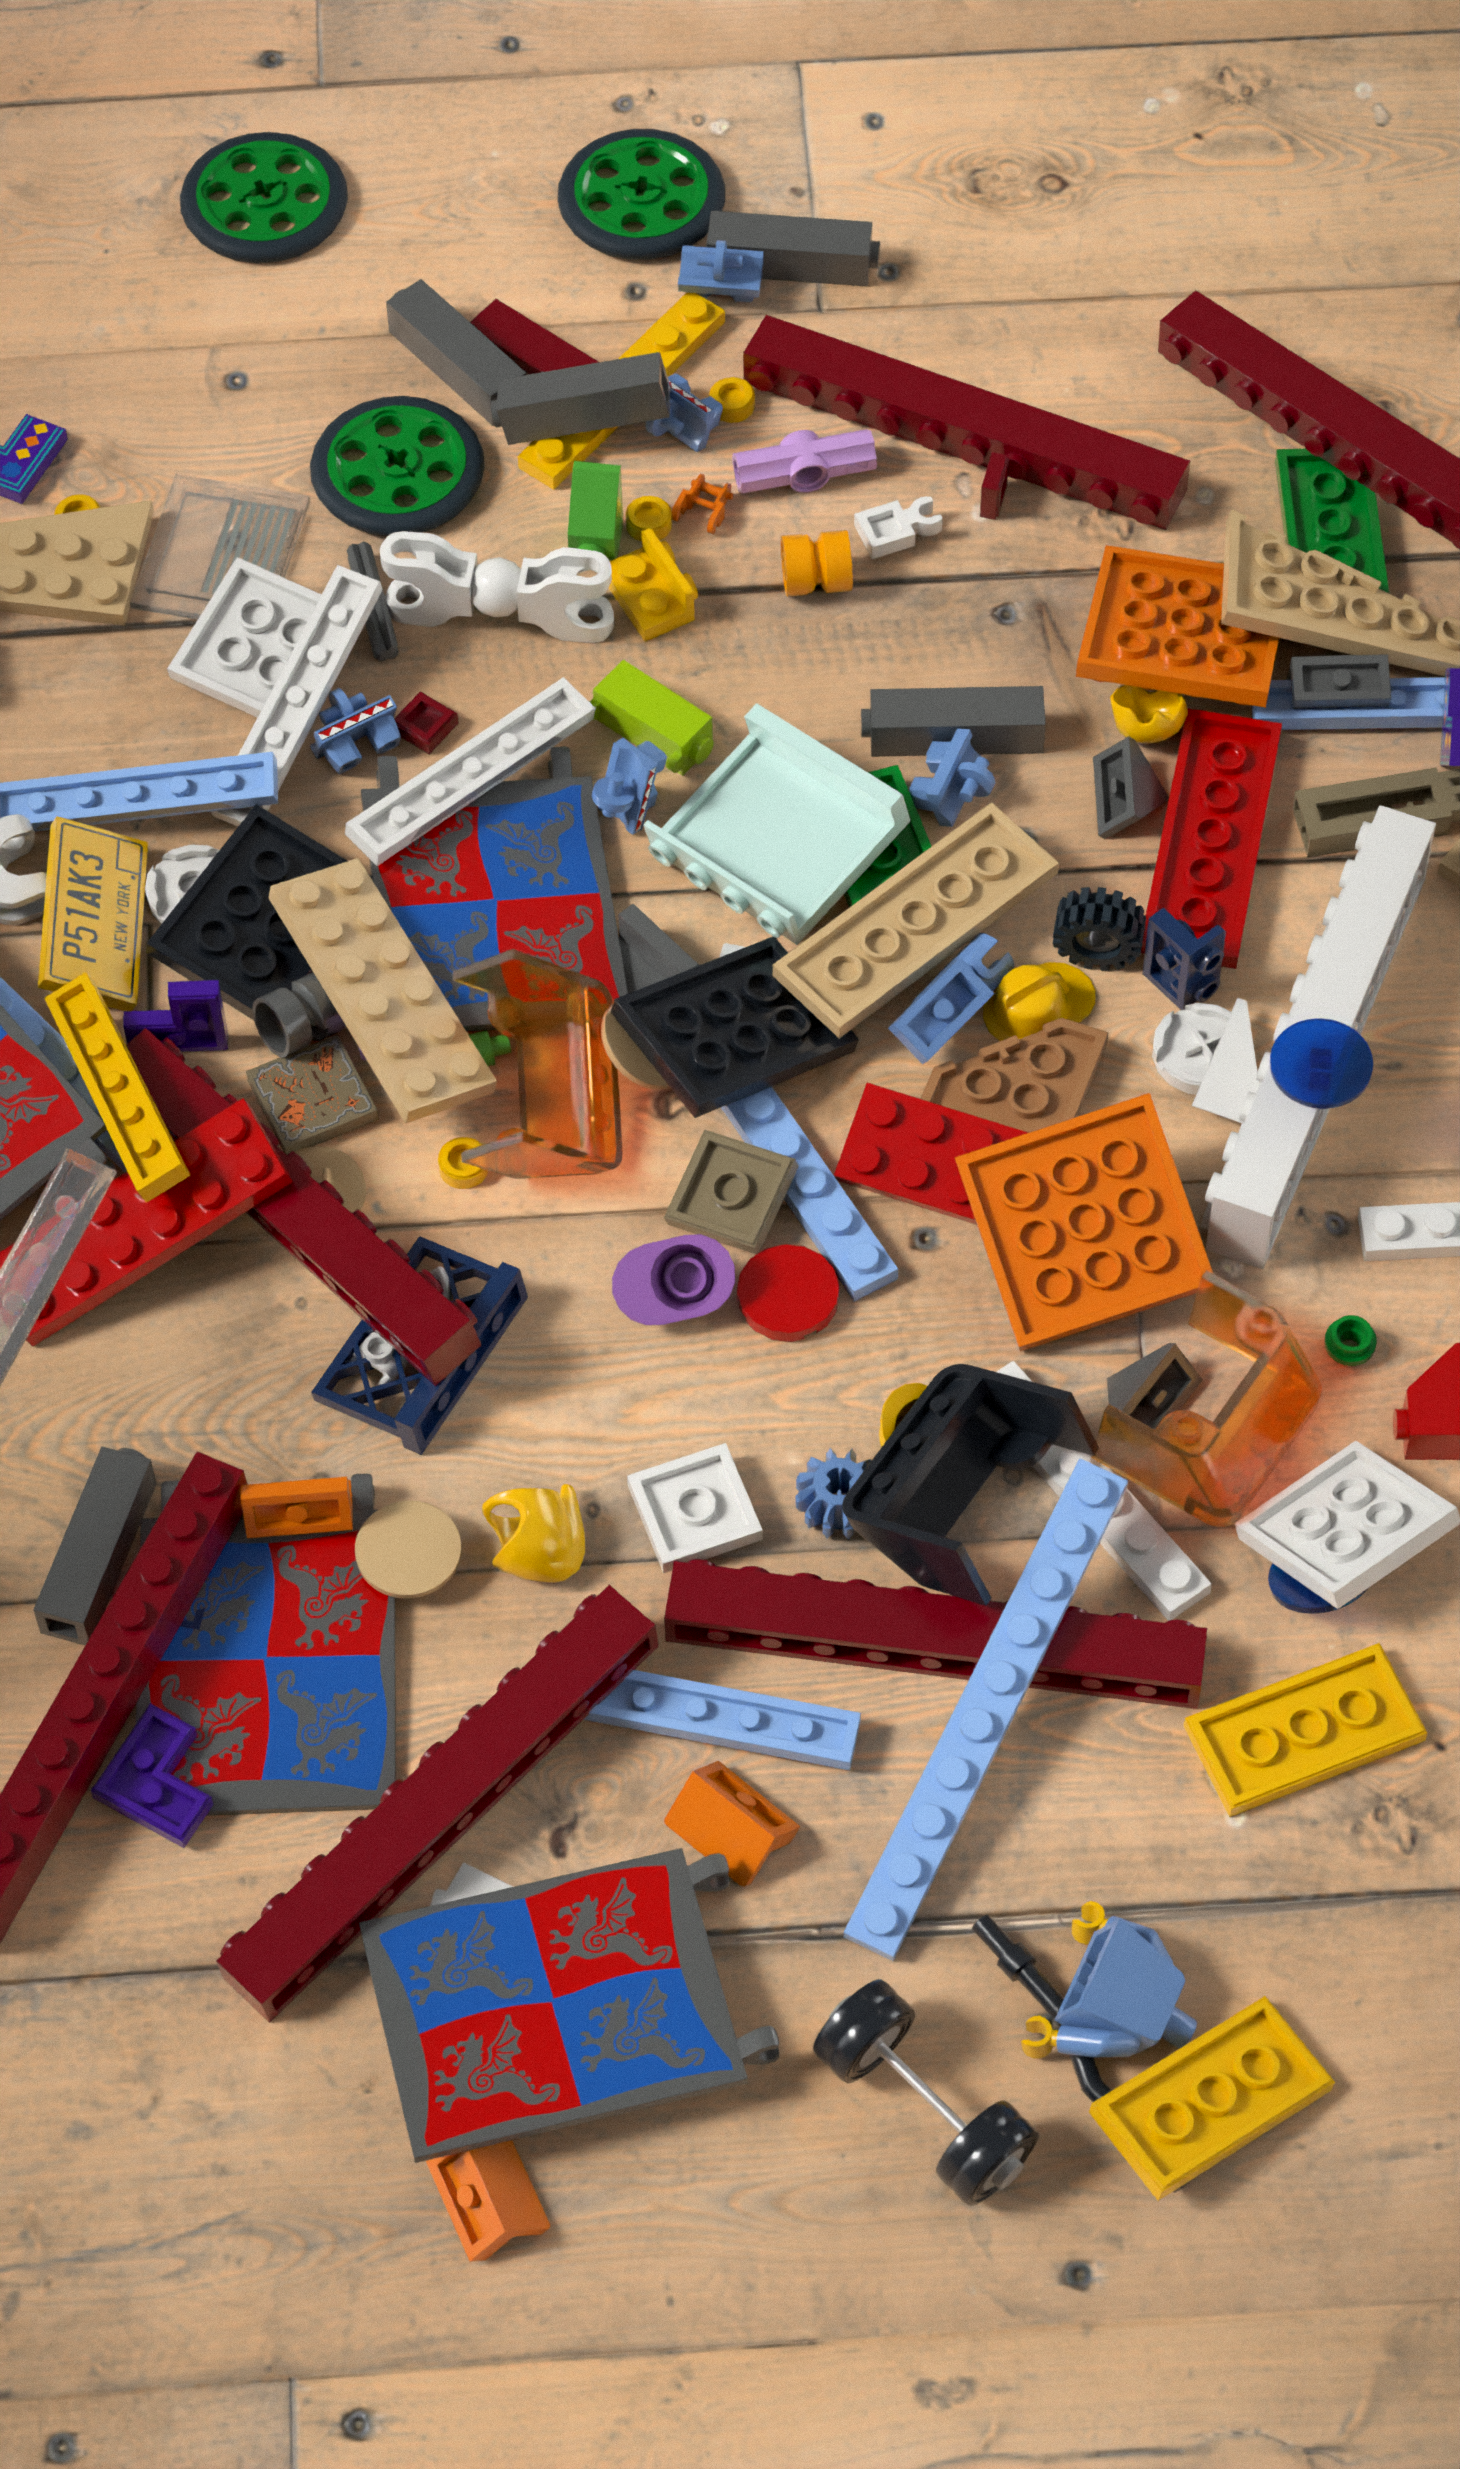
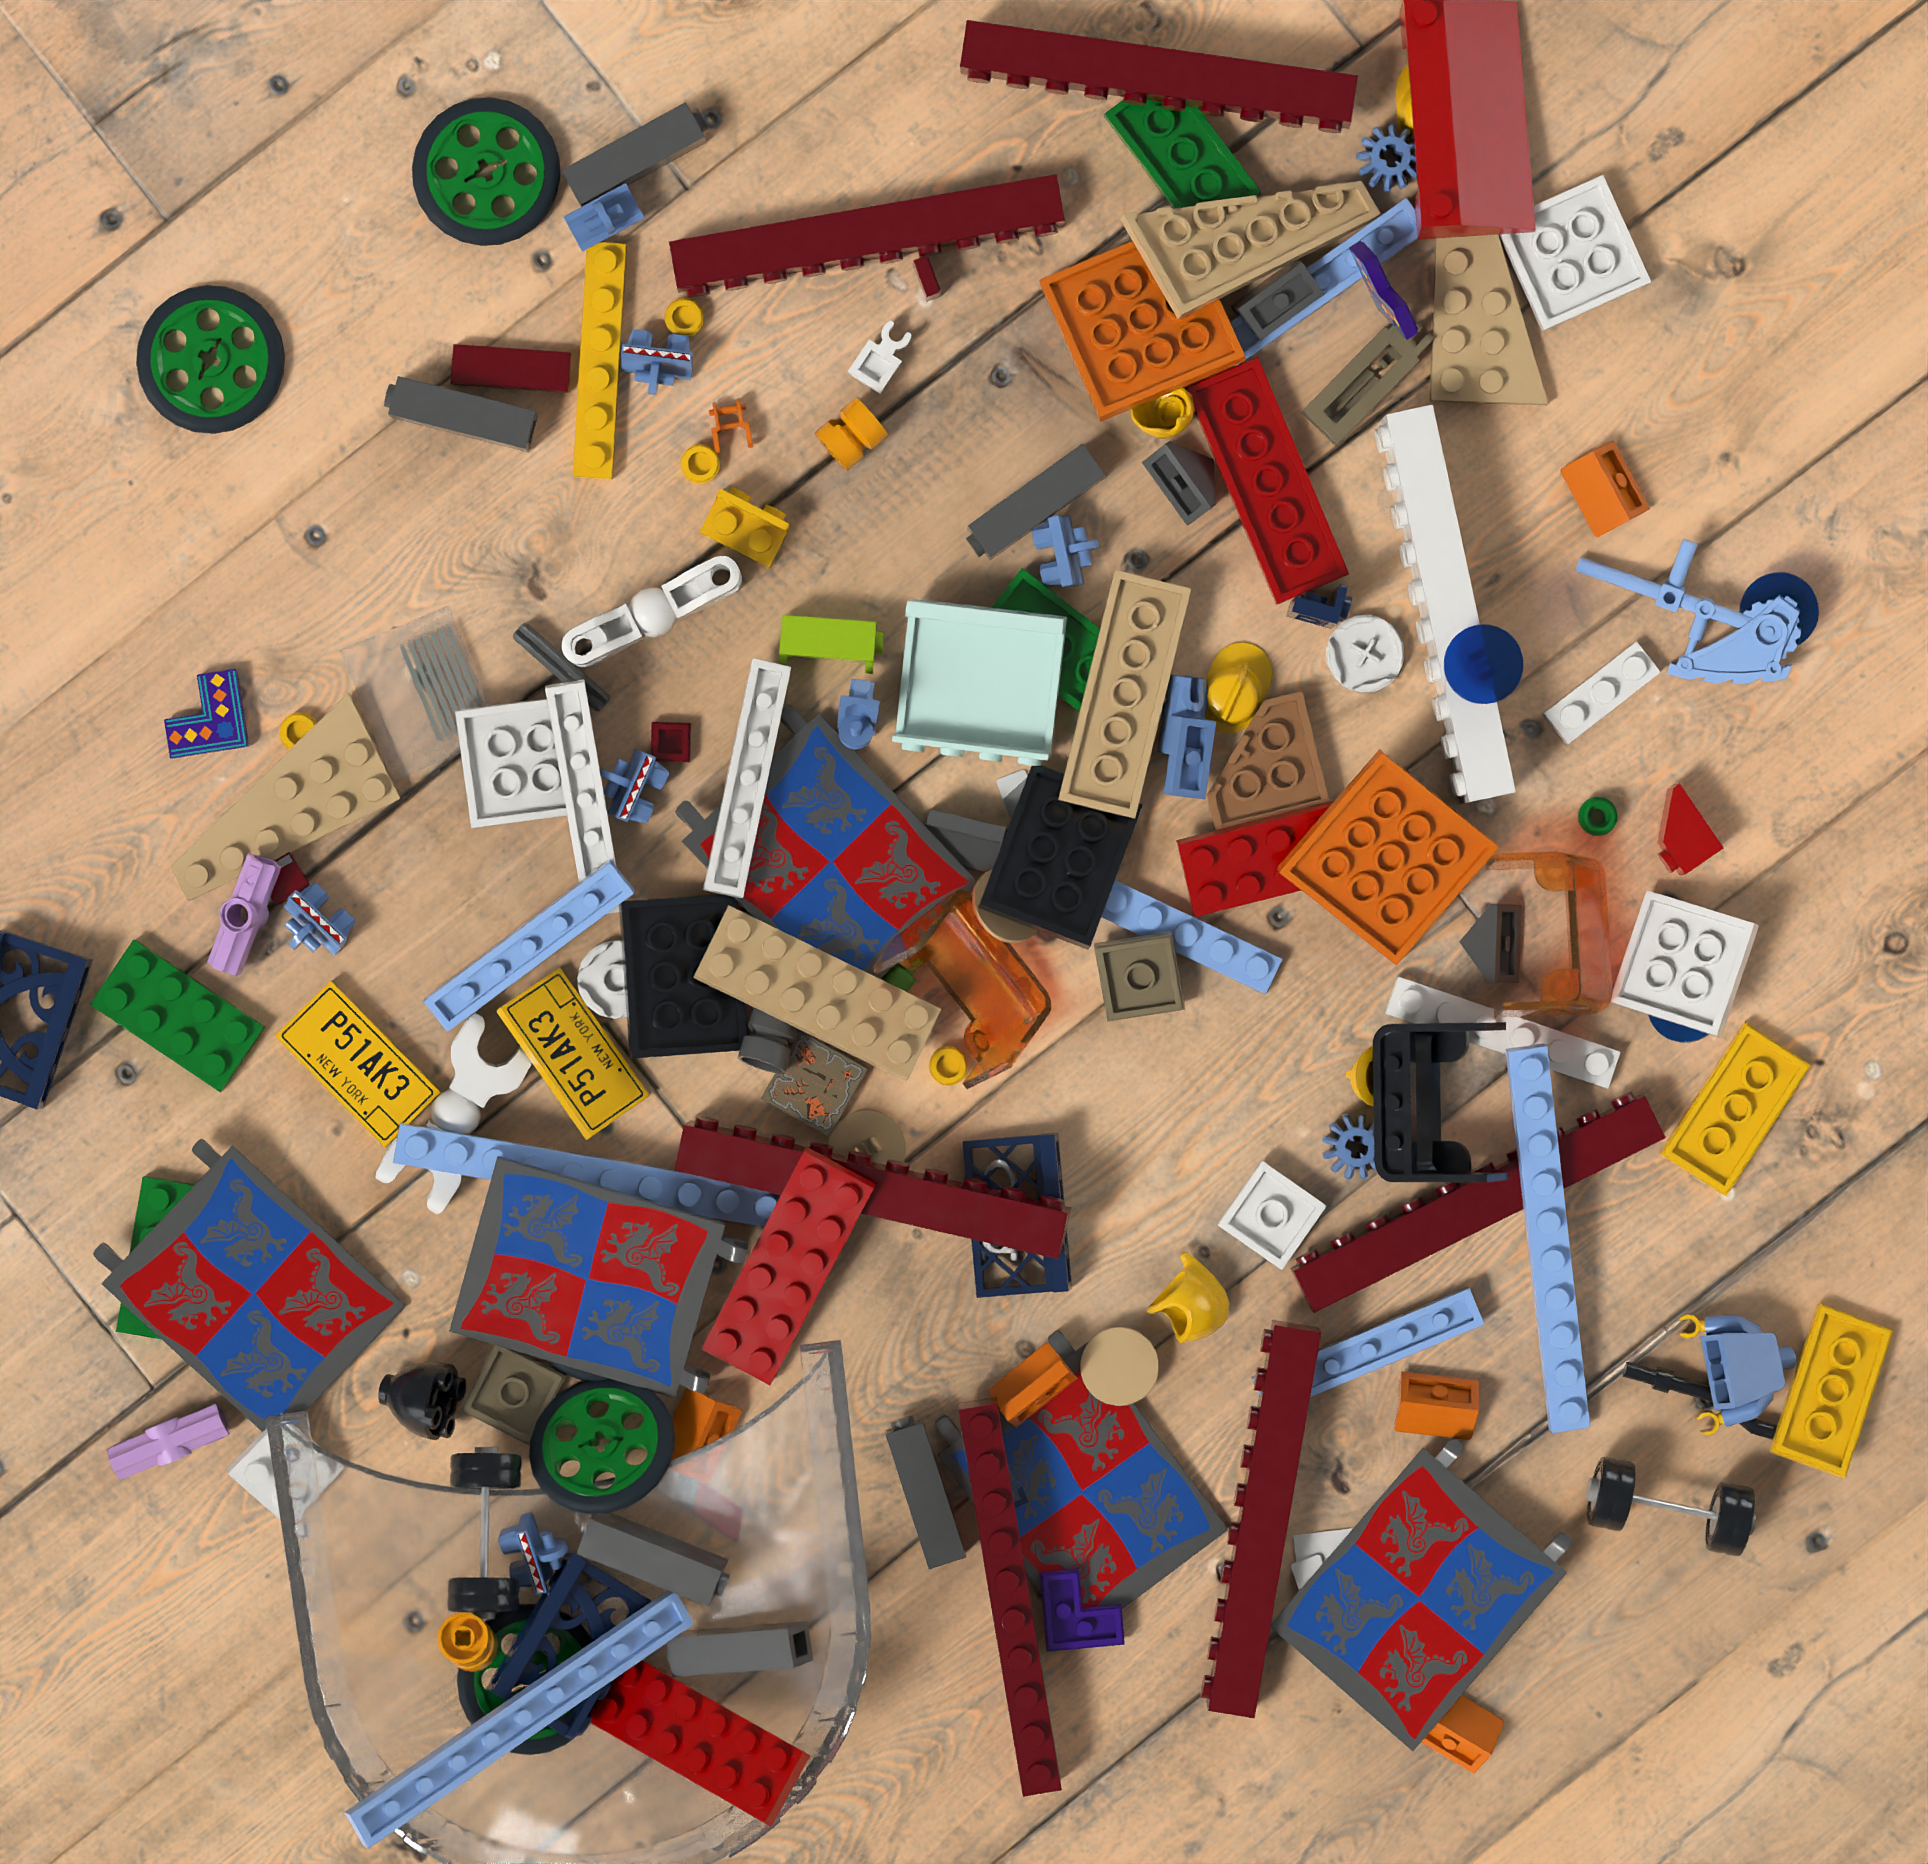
camera: 40 degrees left, 30 degrees up
(117, 1087) = (707, 1190): yellow plate -> none
(192, 1023) = (694, 1102): dark purple tile -> none
(377, 512) = (476, 488): wedge -> none
(582, 398) = (596, 412): dark grey brick -> none
(596, 508) = (675, 506): bright green slope -> none
(673, 1279) = (1153, 1072): medium lavender piece -> none
(788, 1292) = (1222, 1020): red tile -> none
(804, 461) = (778, 344): lavender piece -> none
(1099, 928) = (1248, 618): black bush -> none
(1231, 1069) = (1400, 665): white sticker -> none

